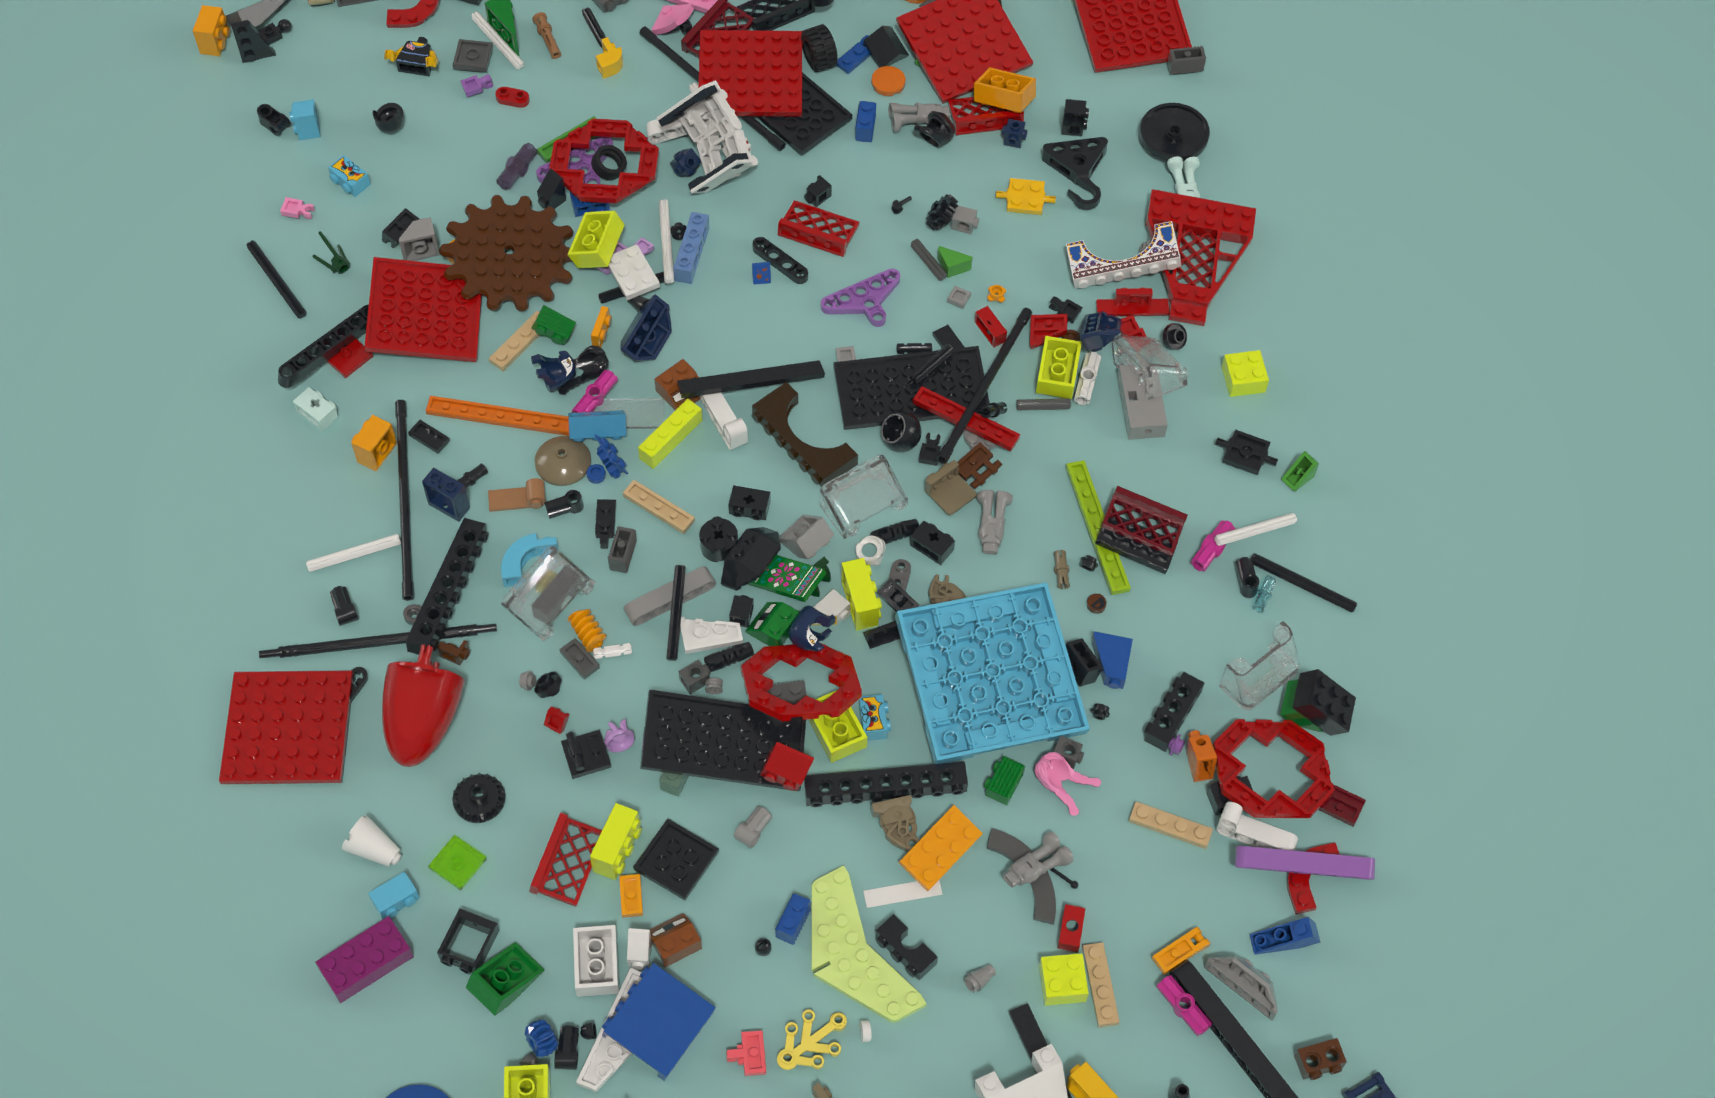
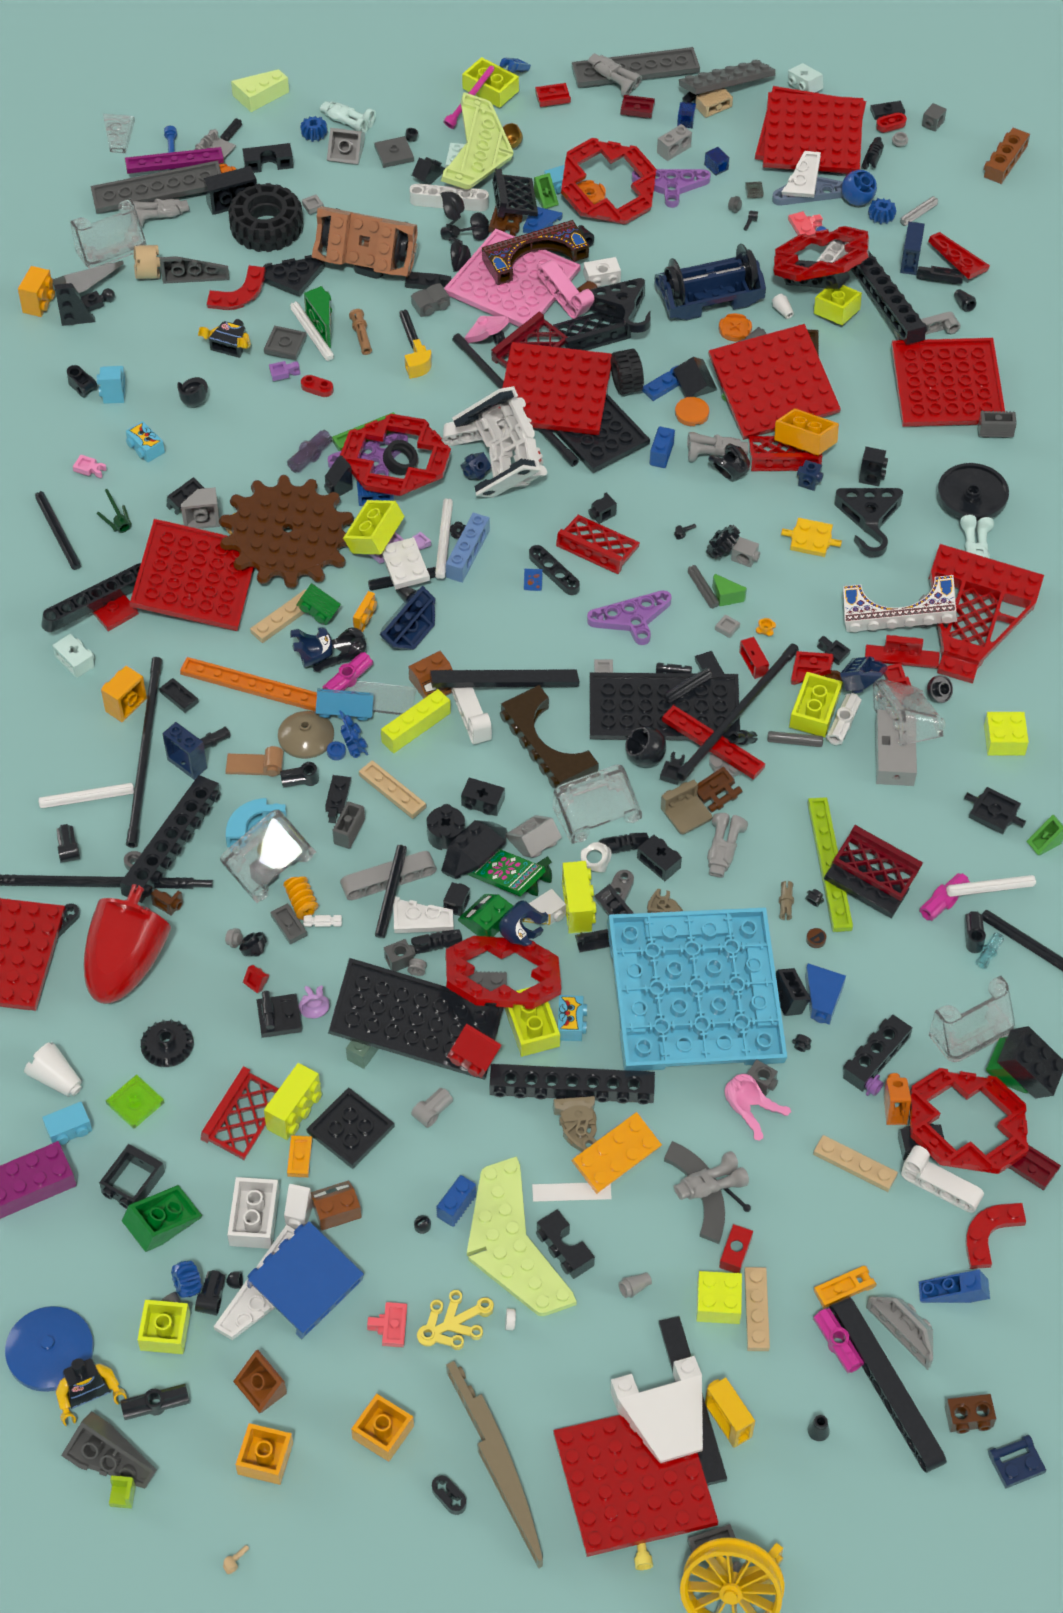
camera: 10 degrees right, 5 degrees down
(1005, 780) = (693, 1096): green brick -> none
(1305, 862) = (986, 1217): medium lavender beam -> none

